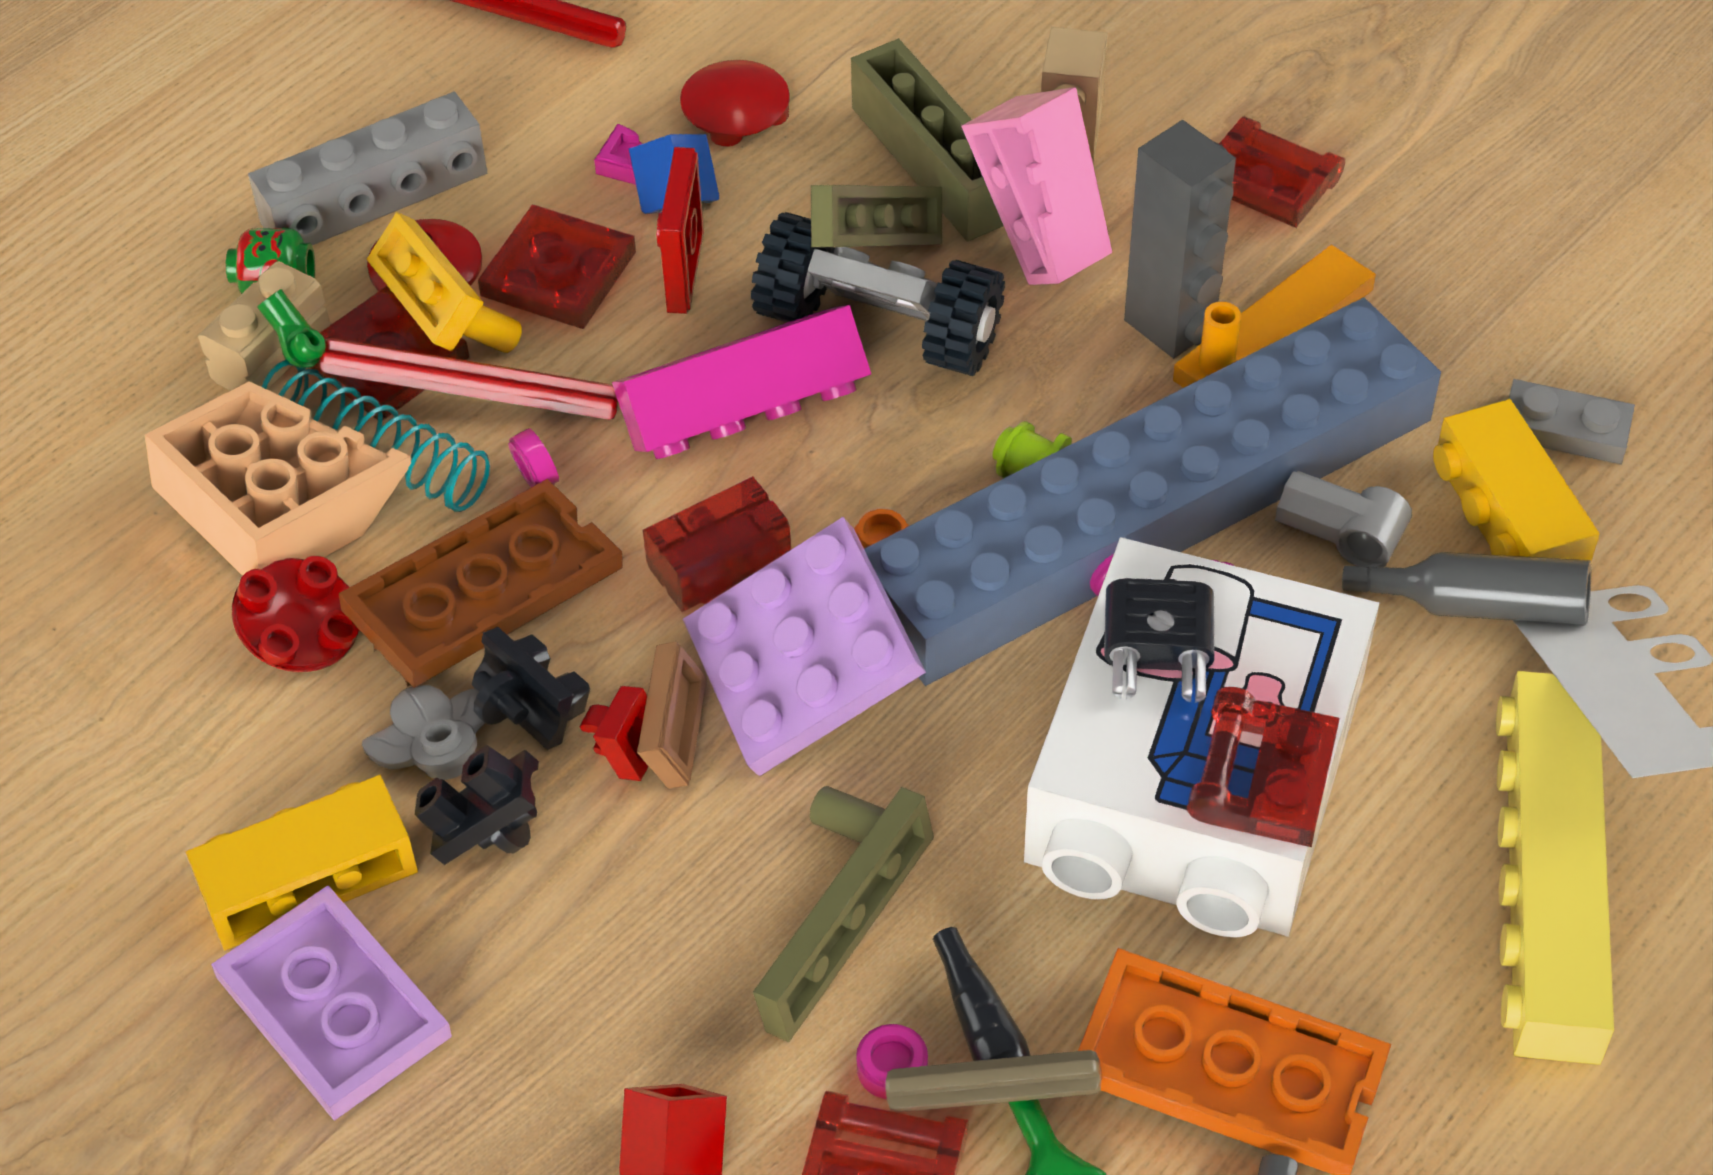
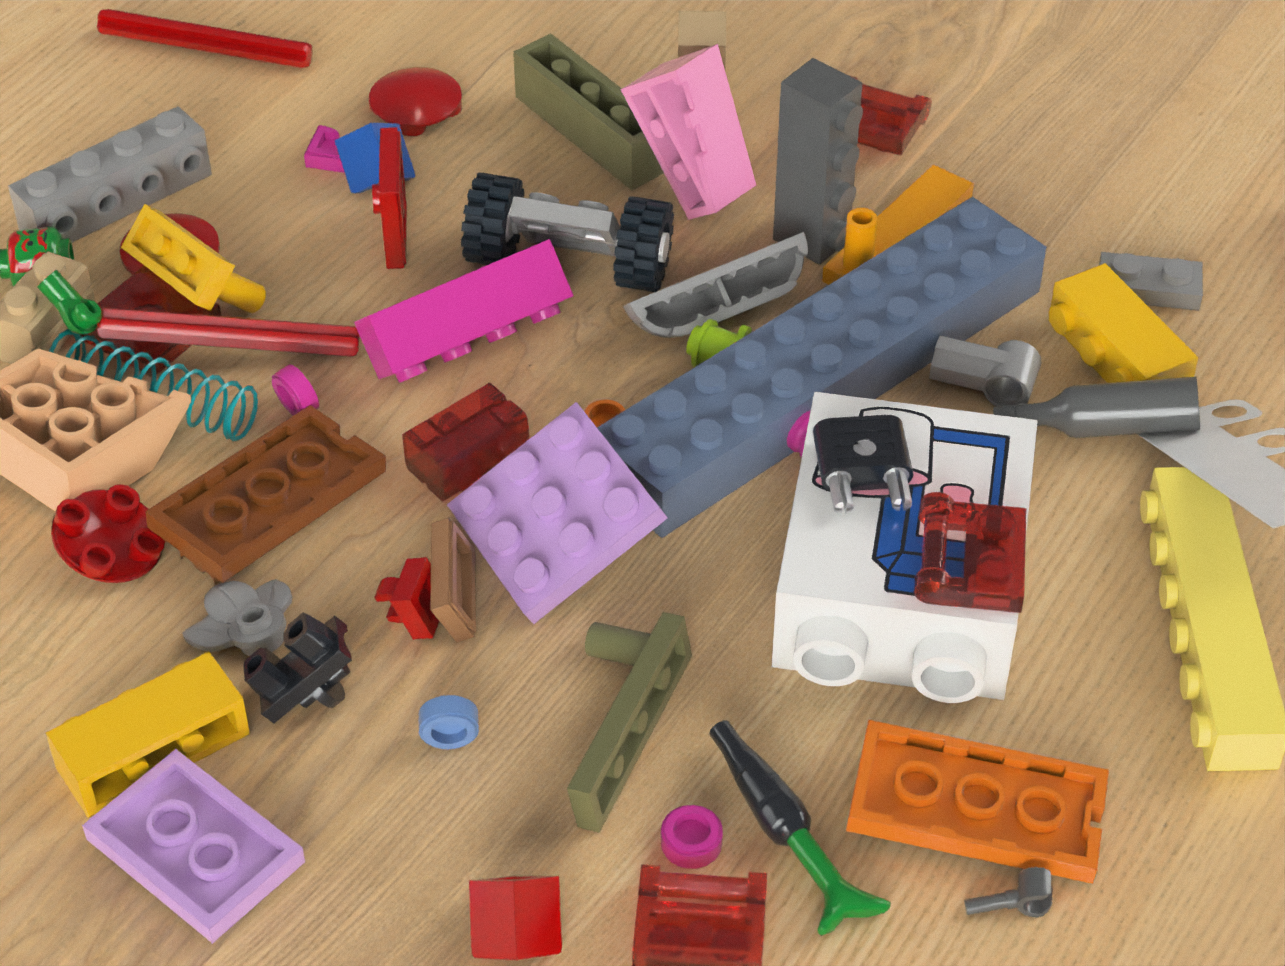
camera: 10 degrees left, 5 degrees down
(518, 687) = (318, 572): black hips -> none
(557, 266) = (288, 238): clear red plate -> none
(638, 889) = (448, 722): none -> medium blue tile
(875, 215) = (559, 167): olive piece -> none
(993, 1081) = (784, 837): dark tan axle -> none
(1047, 384) = (721, 290): none -> light grey brick

